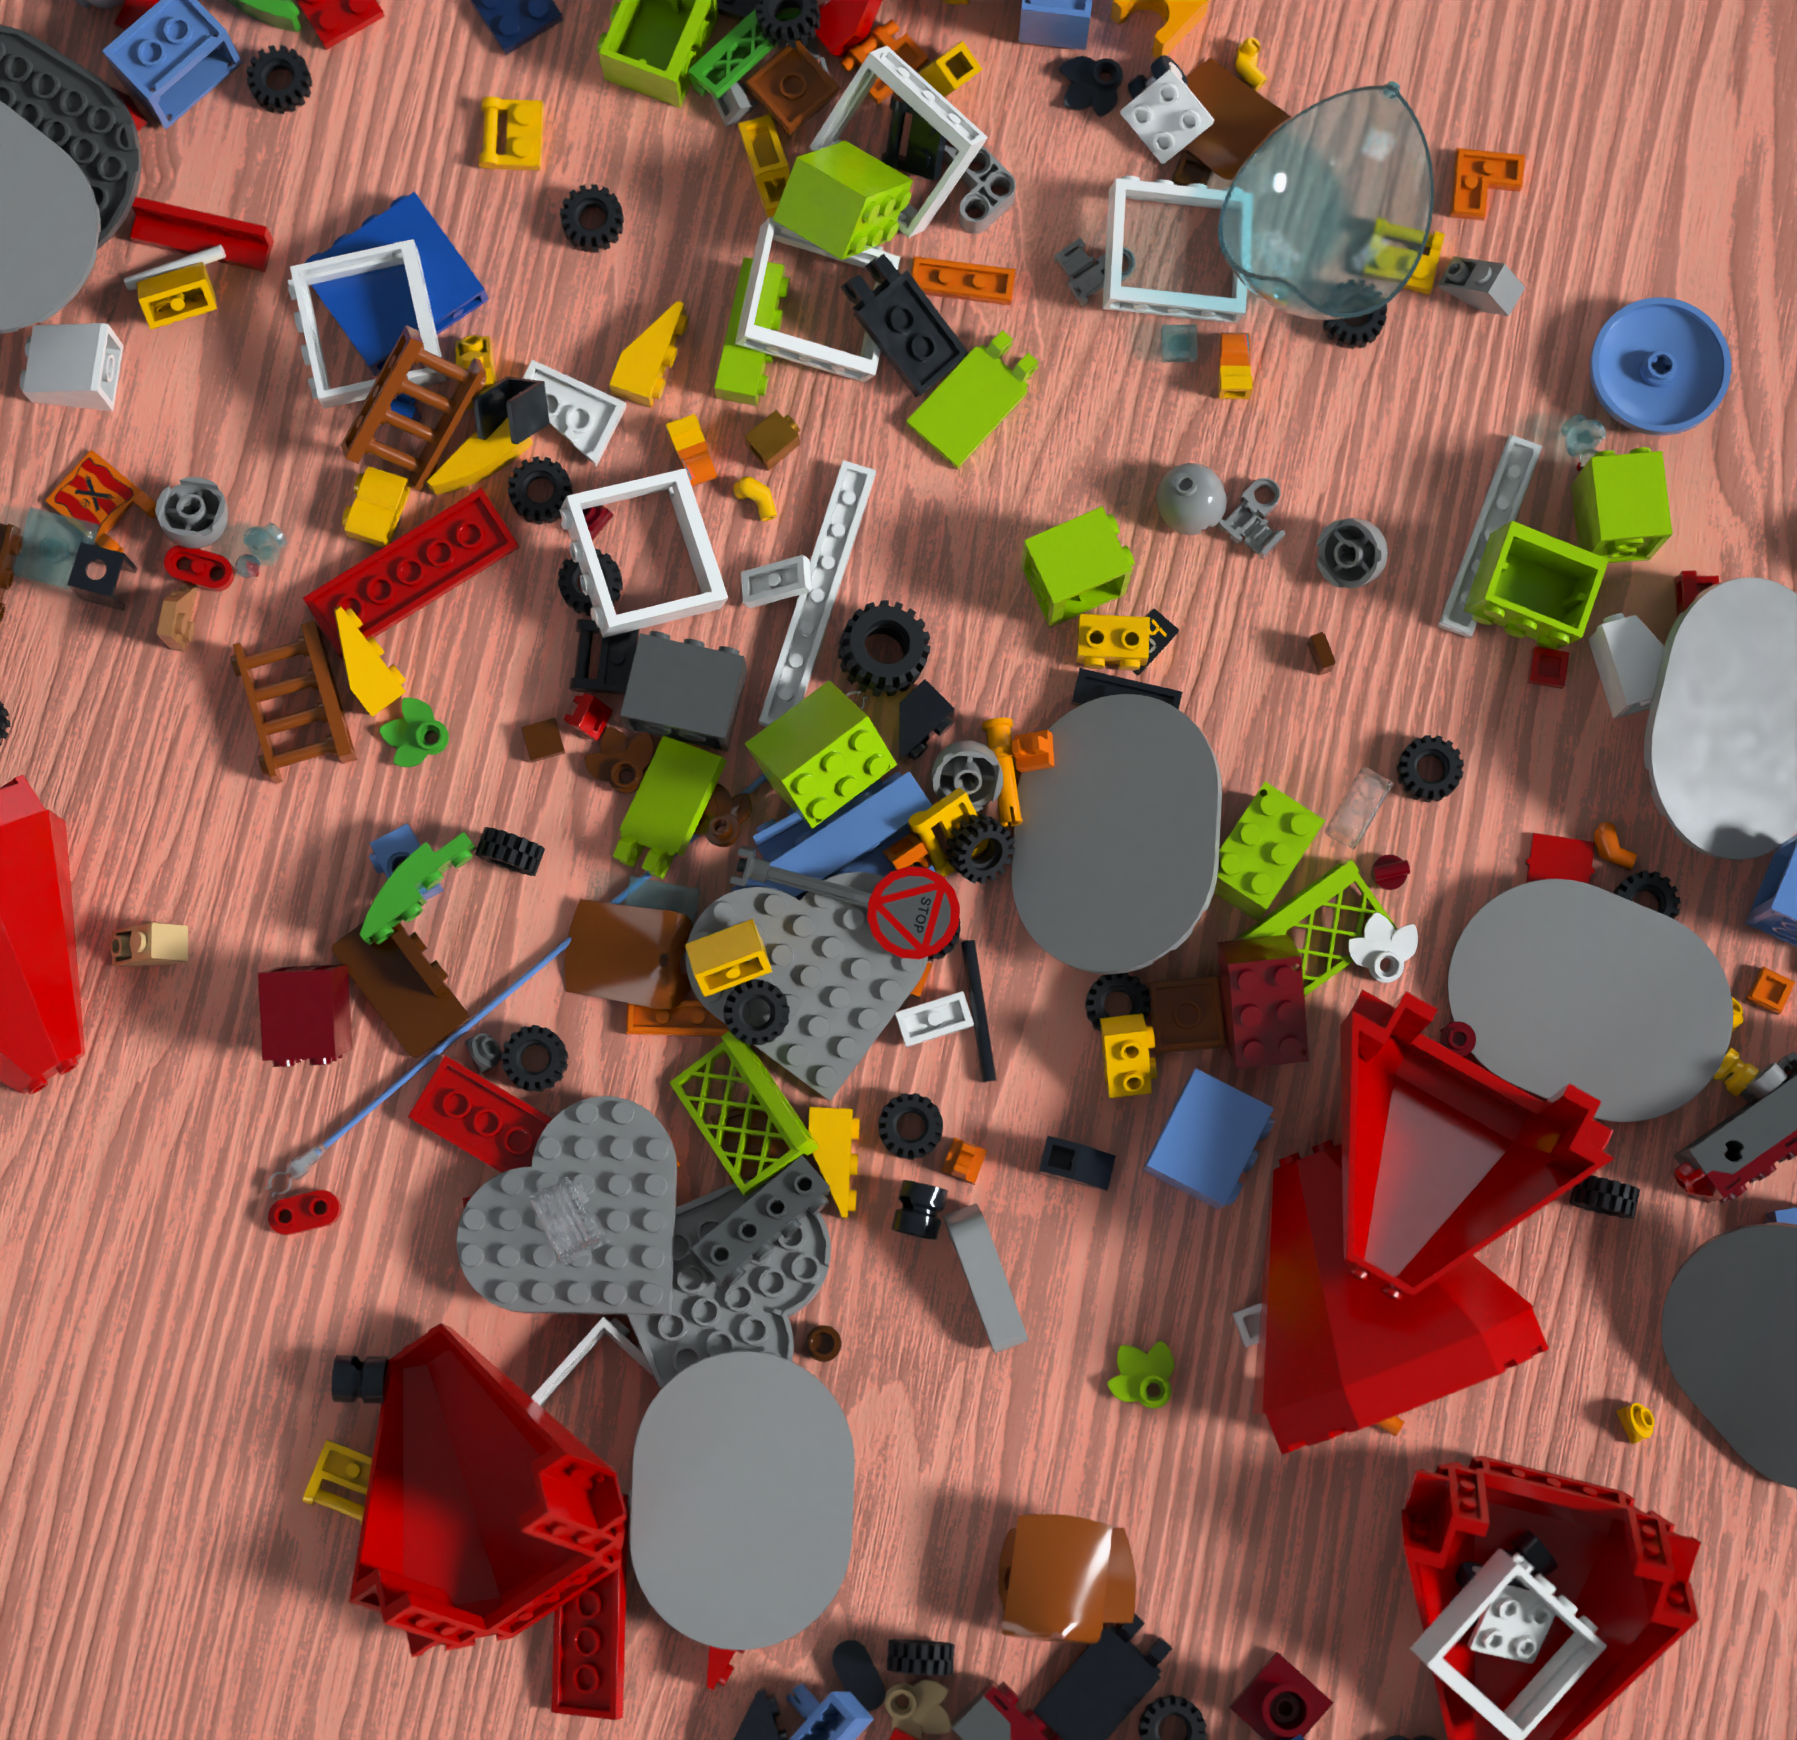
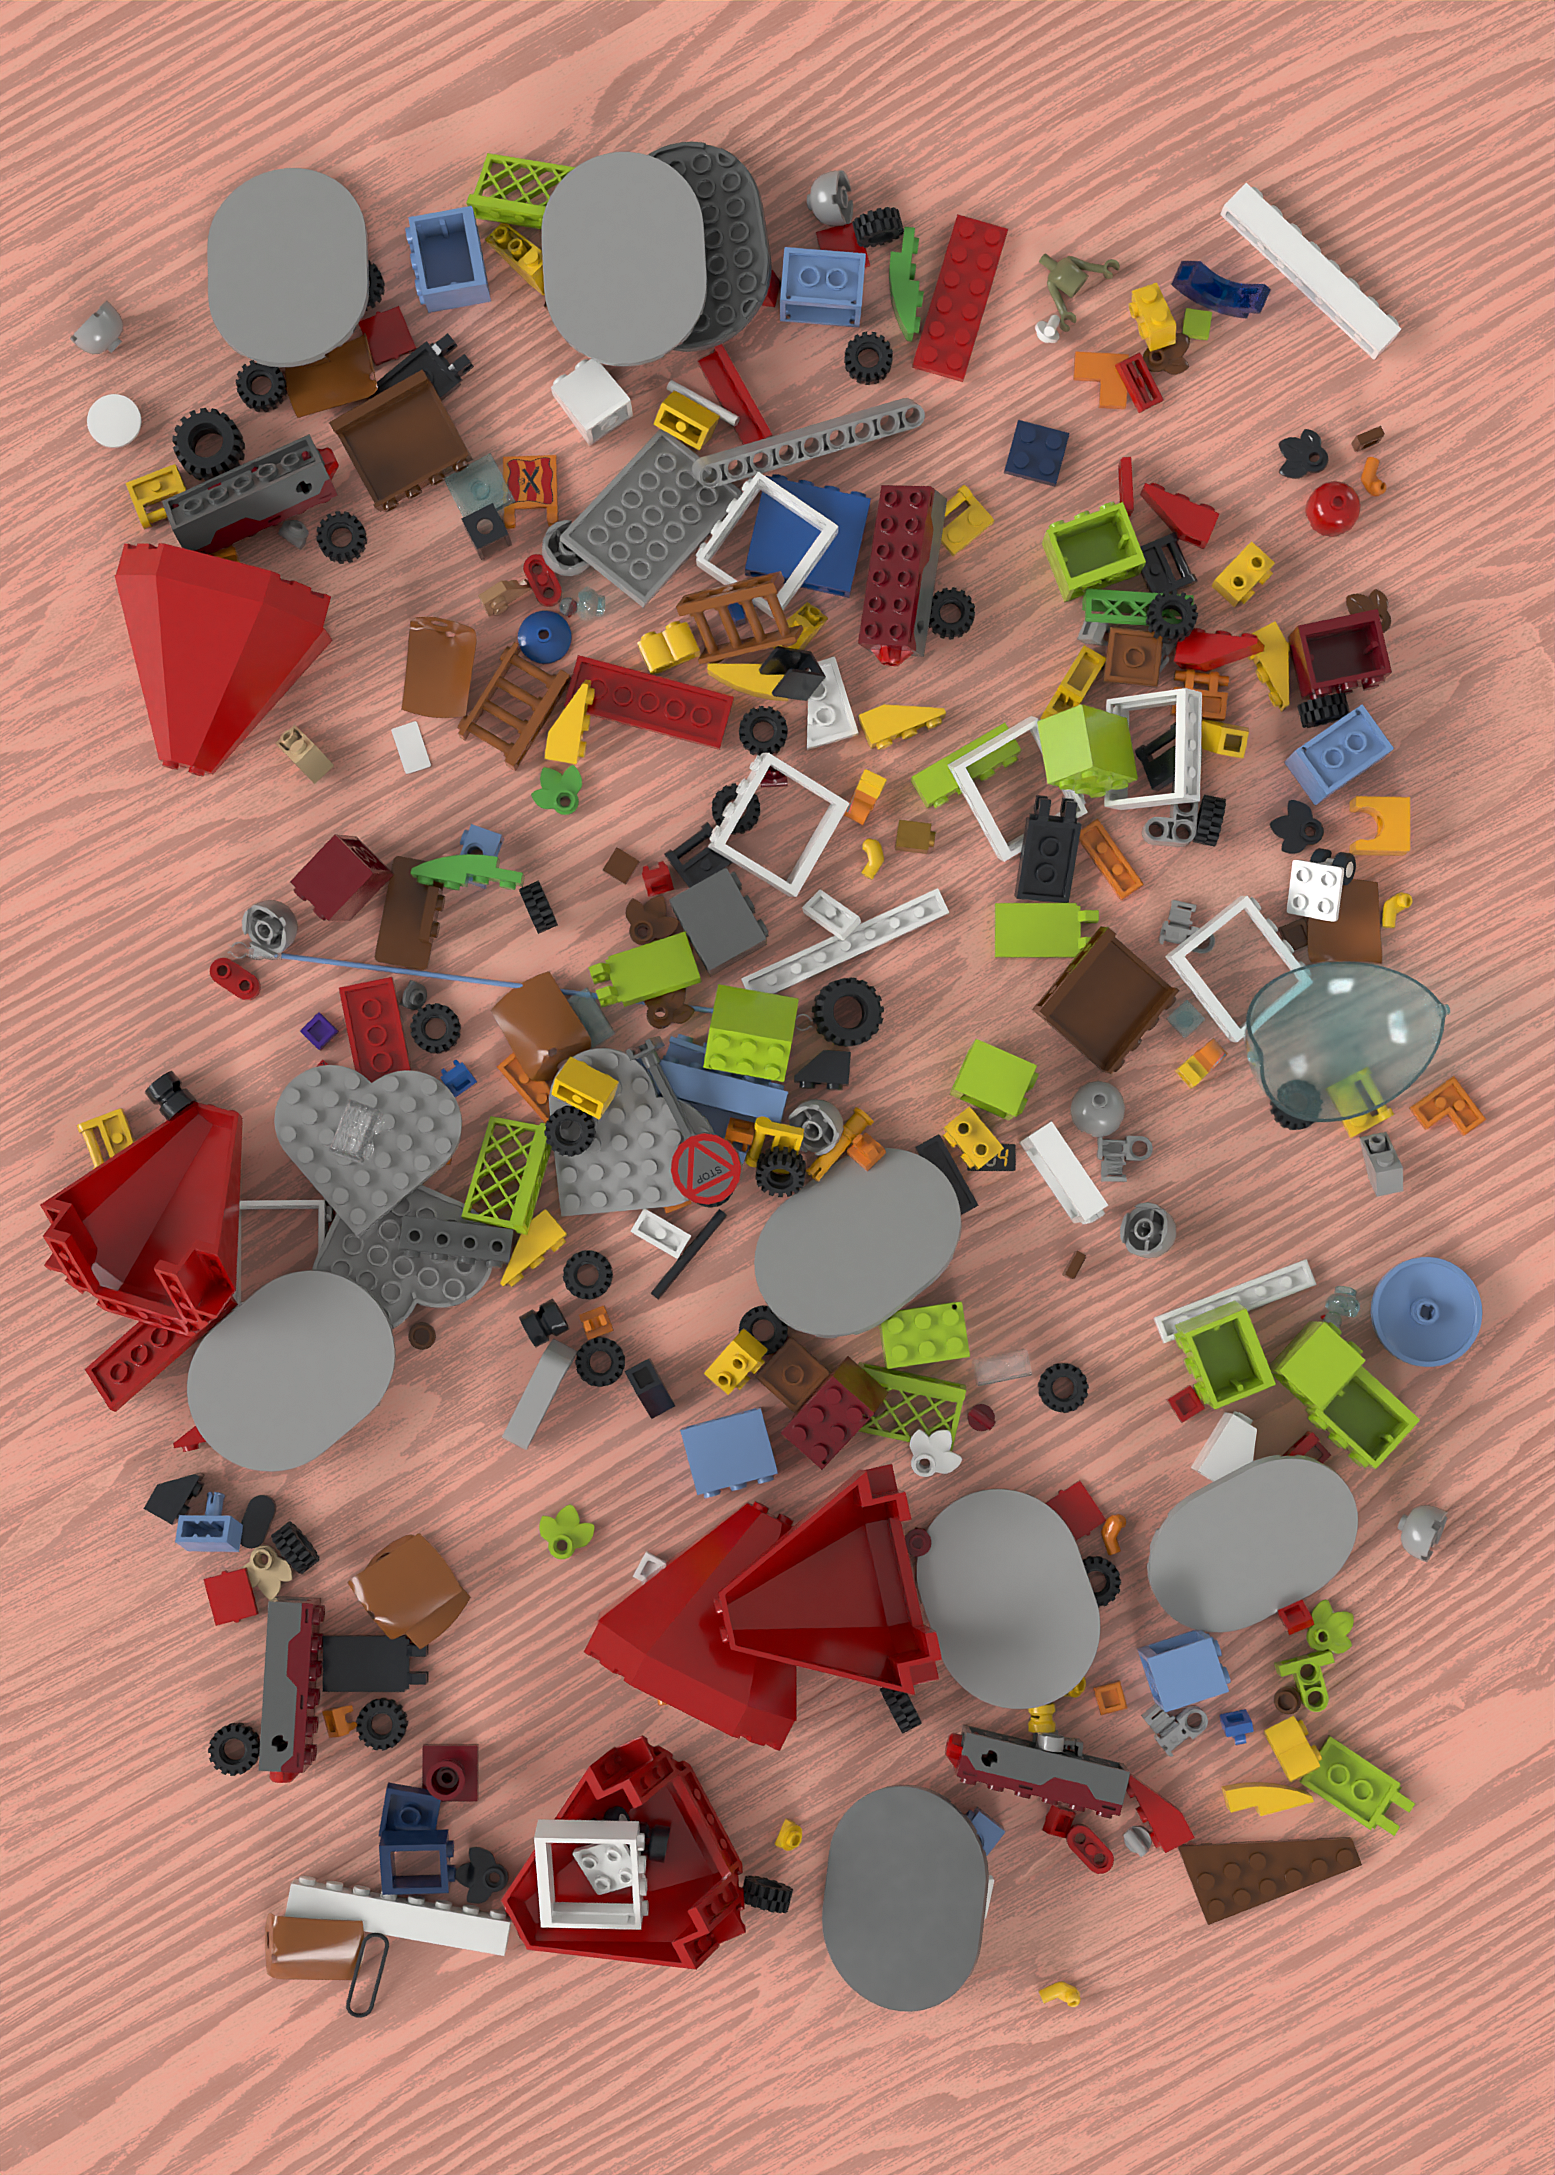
camera: 45 degrees right, 5 degrees up
(189, 742) = (438, 668): none -> dark orange piece
(237, 409) = (649, 519): none -> light grey plate
(240, 839) = (411, 747): none -> white sticker
(263, 630) = (544, 650): none -> blue dish
(286, 1129) = (270, 926): none -> light grey cylinder
(296, 211) = (796, 439): none -> light grey beam
(432, 1175) = (319, 1031): none -> dark purple tile
(512, 224) = (902, 572): none -> dark red piece
(604, 1079) = (458, 1078): none -> blue tile
(1010, 1168) = (583, 1362): none -> black tyre
(1013, 152) = (1209, 820): none -> black tyre
(1095, 400) = (1105, 1001): none -> reddish brown panel
(1229, 578) = (1064, 1174): none -> white window
(1677, 1492) = (767, 1894): none -> black tyre
(1716, 511) = (1364, 1419): none -> lime container

